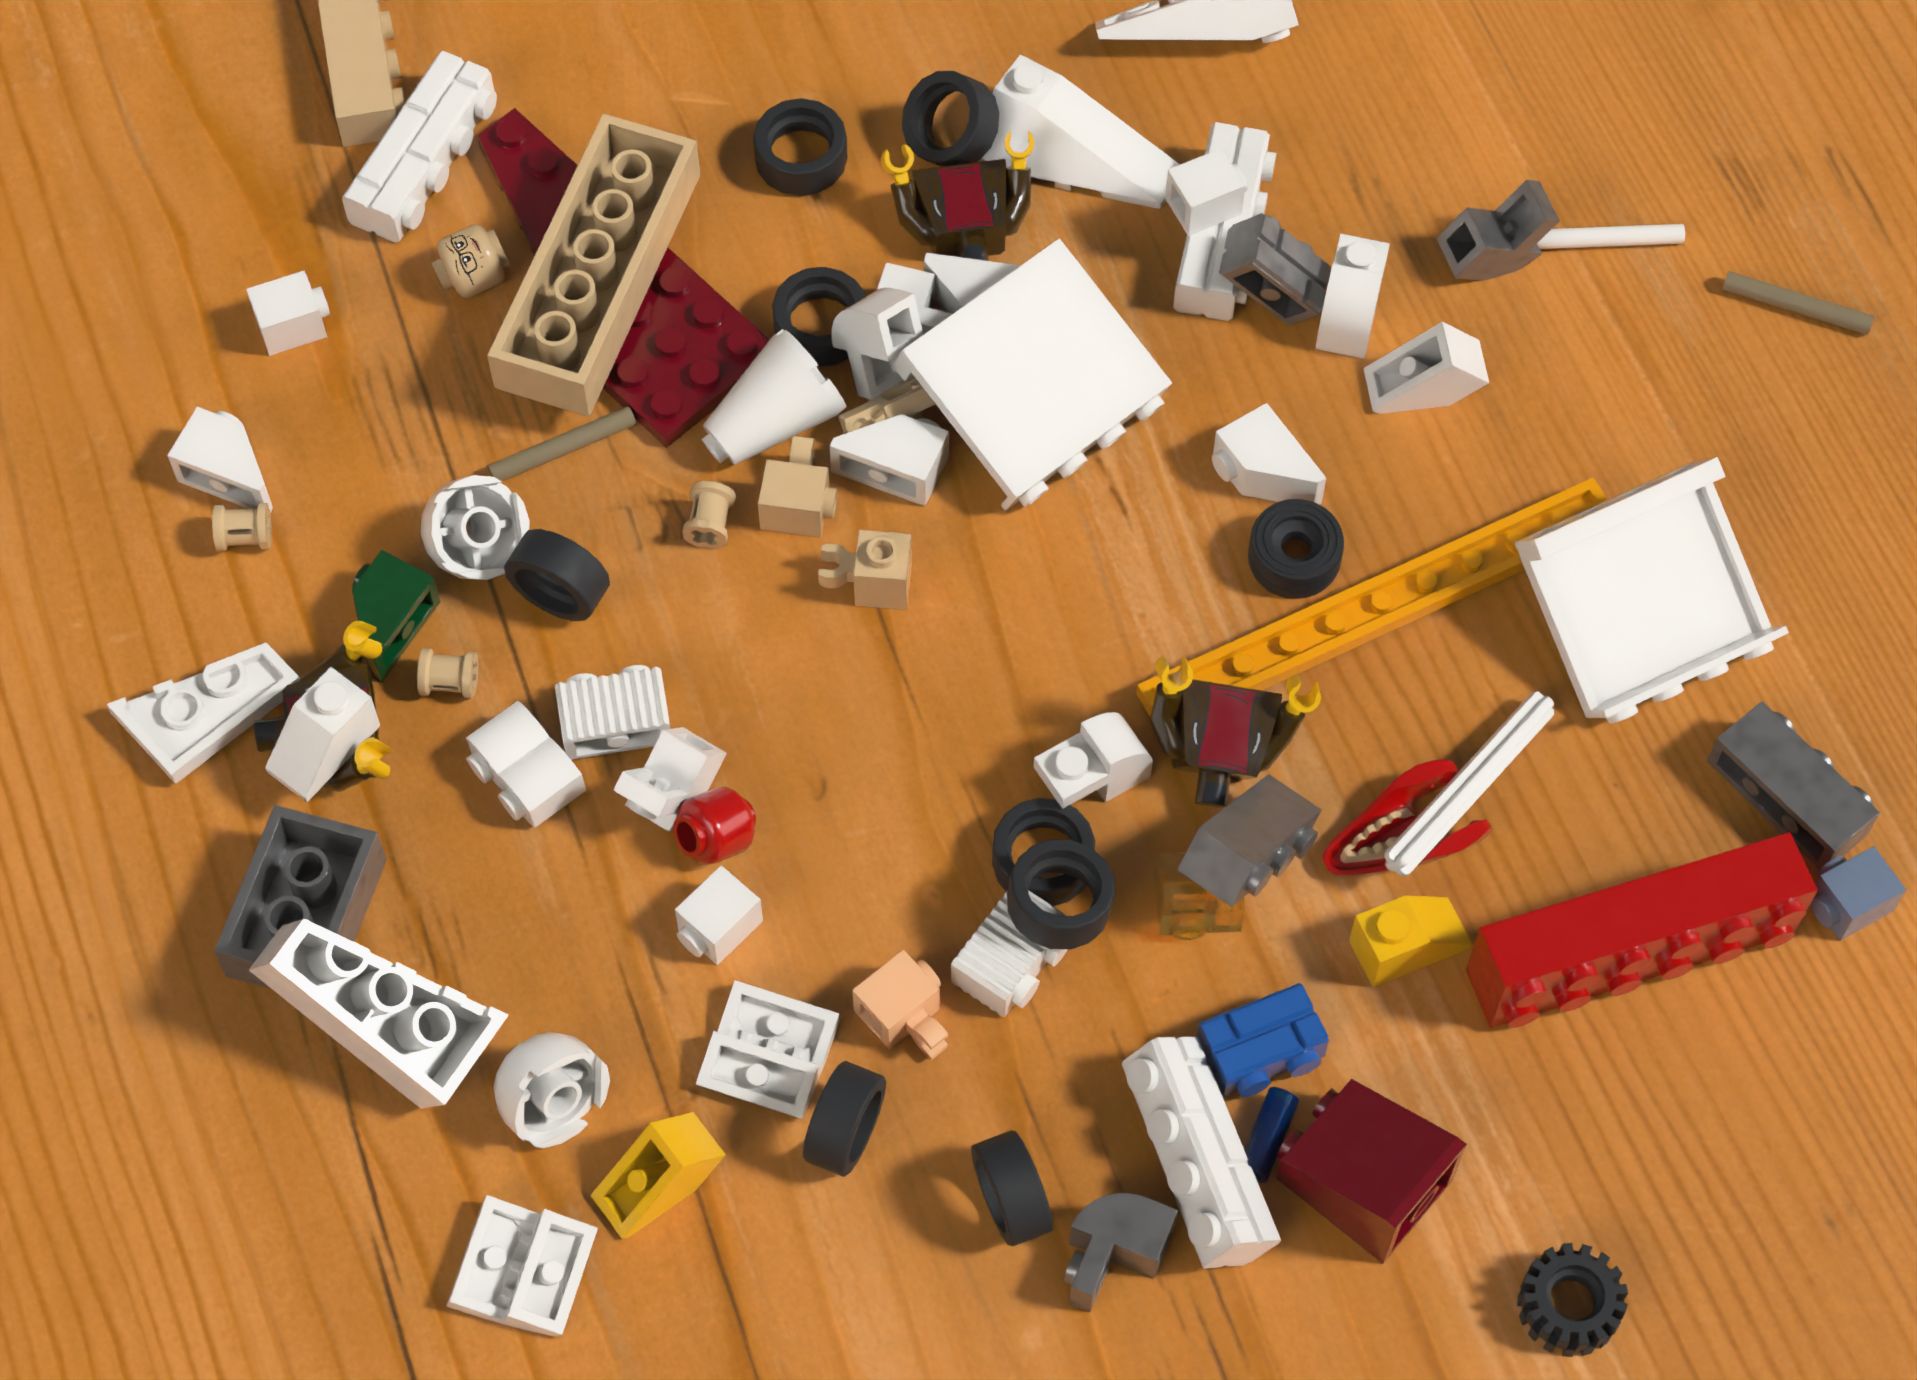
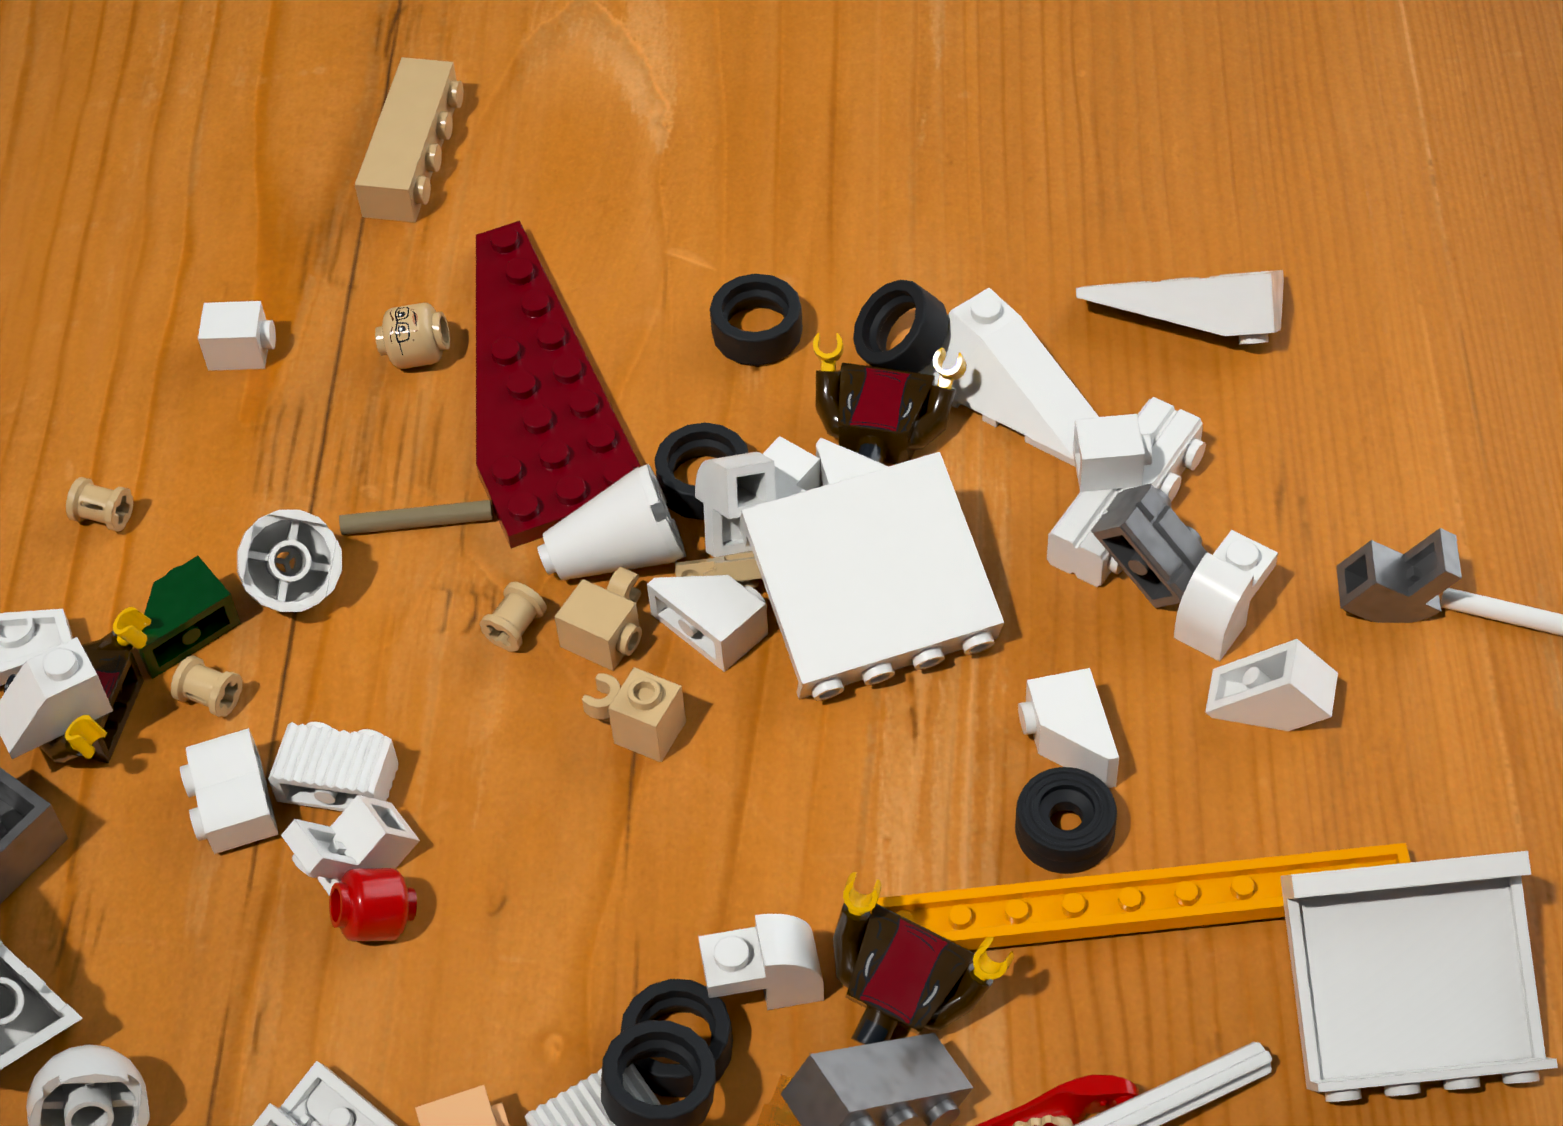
camera: 25 degrees right, 10 degrees down
(218, 459) = (112, 440): white slope -> none
(420, 147) = (419, 230): white brick -> none
(557, 575) = (341, 625): black tyre -> none
(594, 265) = (507, 363): tan brick -> none
(718, 916) = (331, 993): white brick -> none

